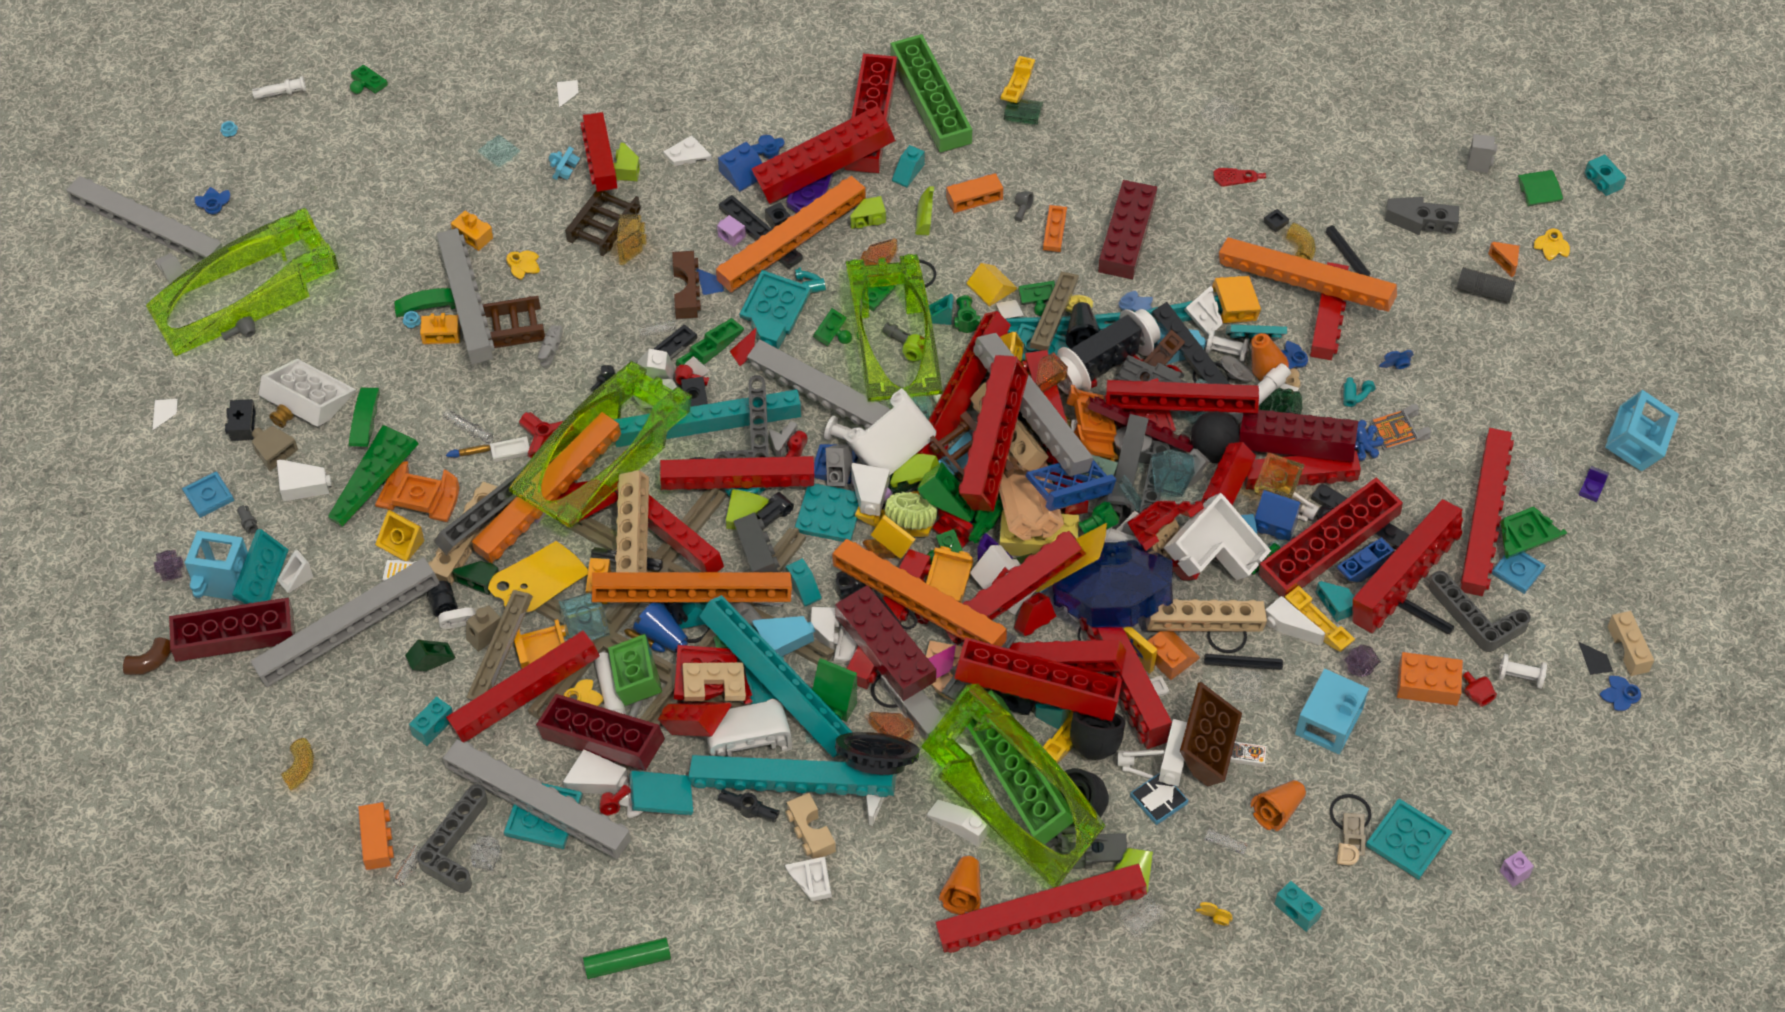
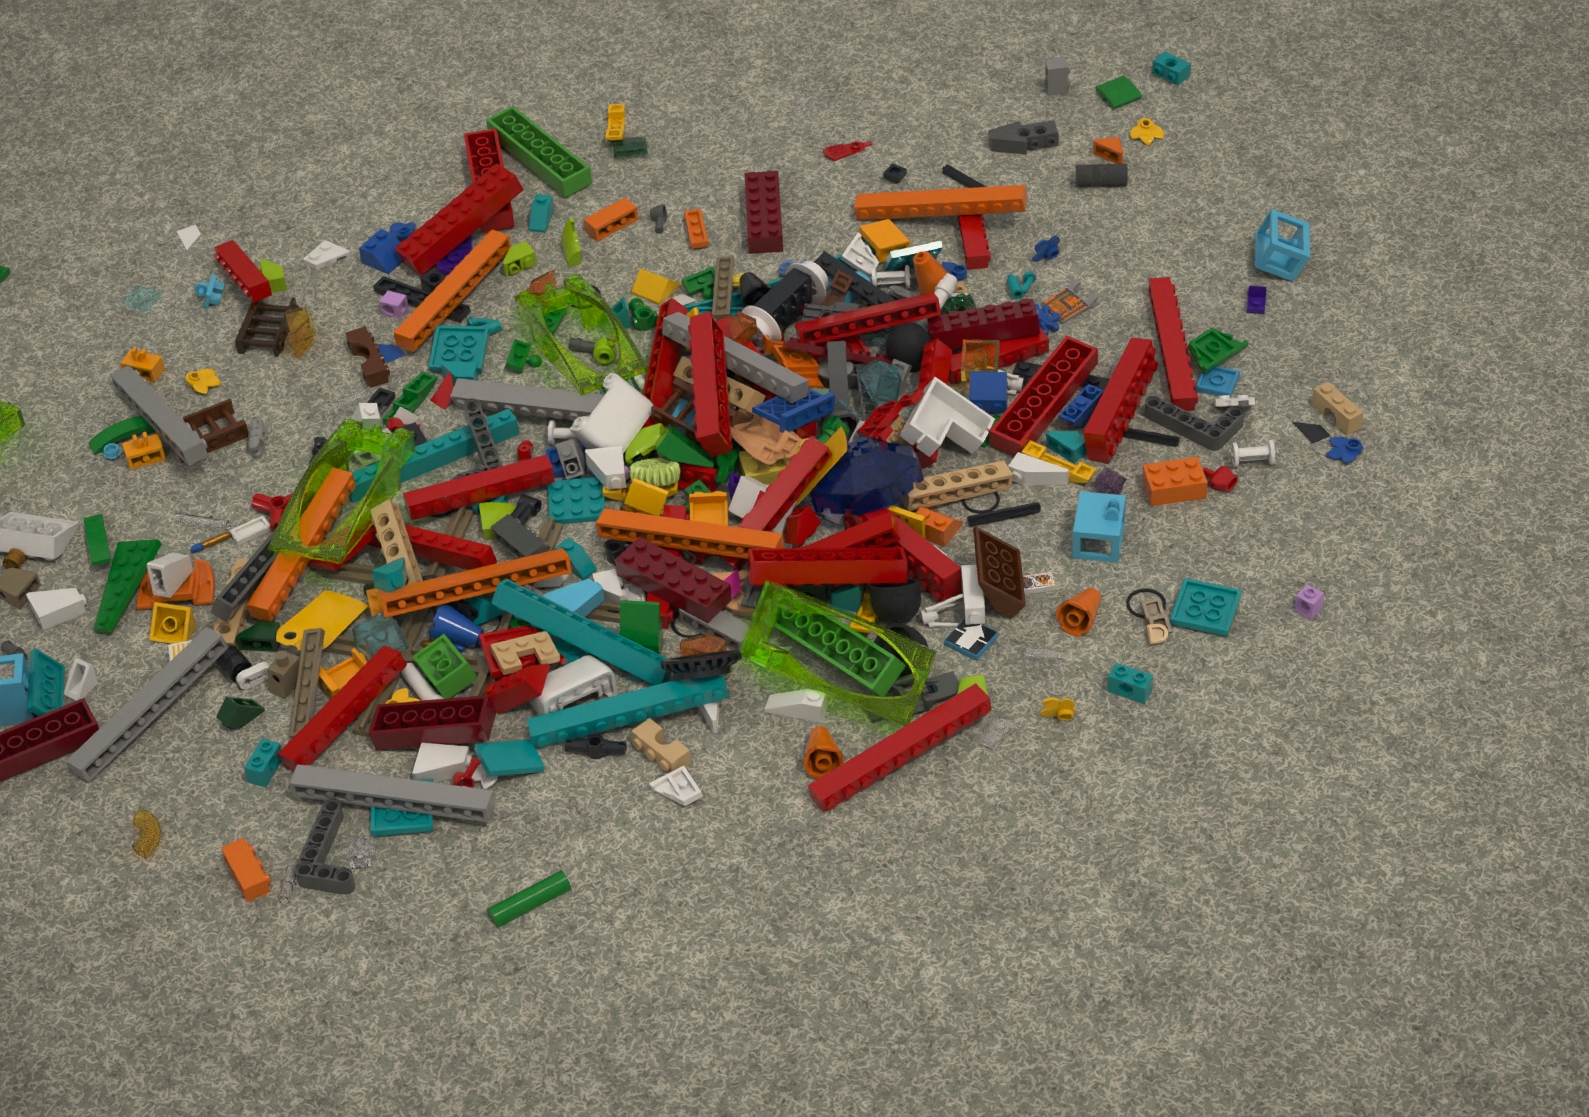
camera: 15 degrees left, 10 degrees down
(412, 481) = (169, 573): none -> white slope
(612, 559) = (390, 576): none -> teal slope
(779, 441) = (509, 454): light grey slope -> none
(1303, 240) = (923, 180): clear yellow cylinder -> none
(1534, 603) = (1241, 400): none -> white wing

